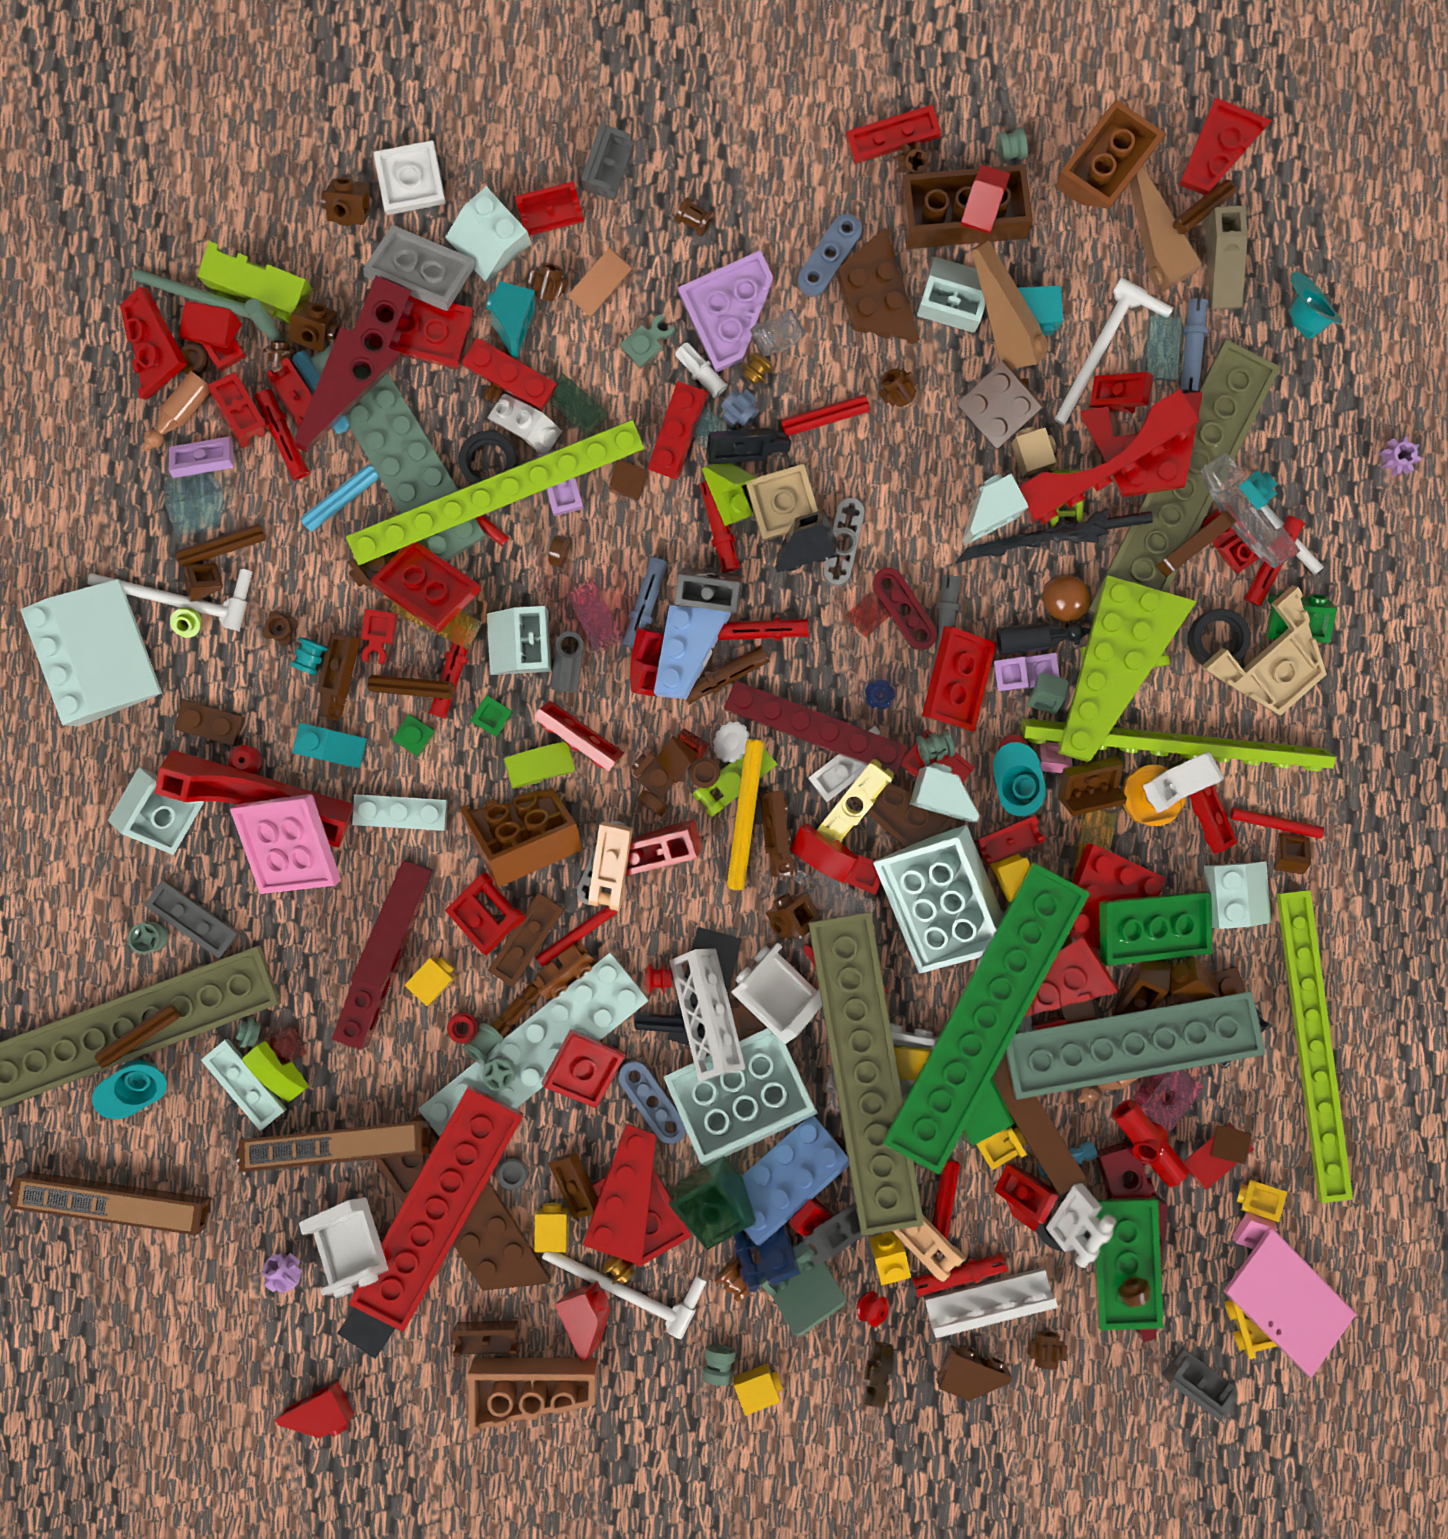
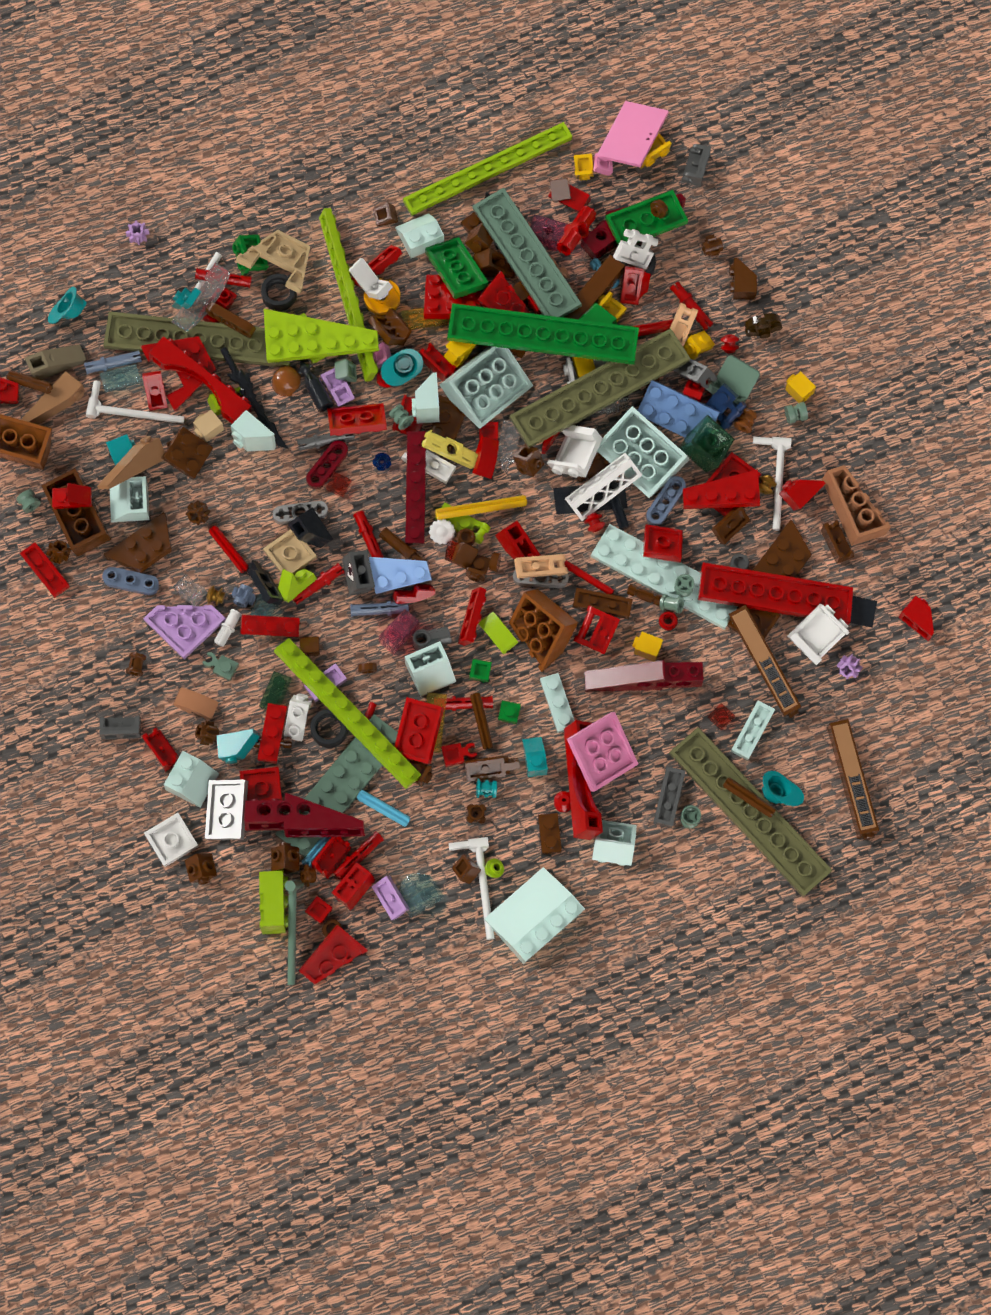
camera: 115 degrees left, 15 degrees down
(177, 409) = (366, 923): nougat wheel -> none
(208, 324) = (308, 921): red slope -> none
(220, 545) = (439, 867): reddish brown axle -> none
(248, 1032) = (722, 738): sand green plate -> none
(281, 1080) = (738, 714): lime slope -> none
(552, 1228) = (760, 528): yellow brick -> none
(575, 962) = (605, 572): dark orange hinge -> none
(776, 834) = (484, 488): reddish brown hinge -> none
(990, 1302) = (700, 285): white fence -> none
(1277, 823) = (371, 228): red bar -> none

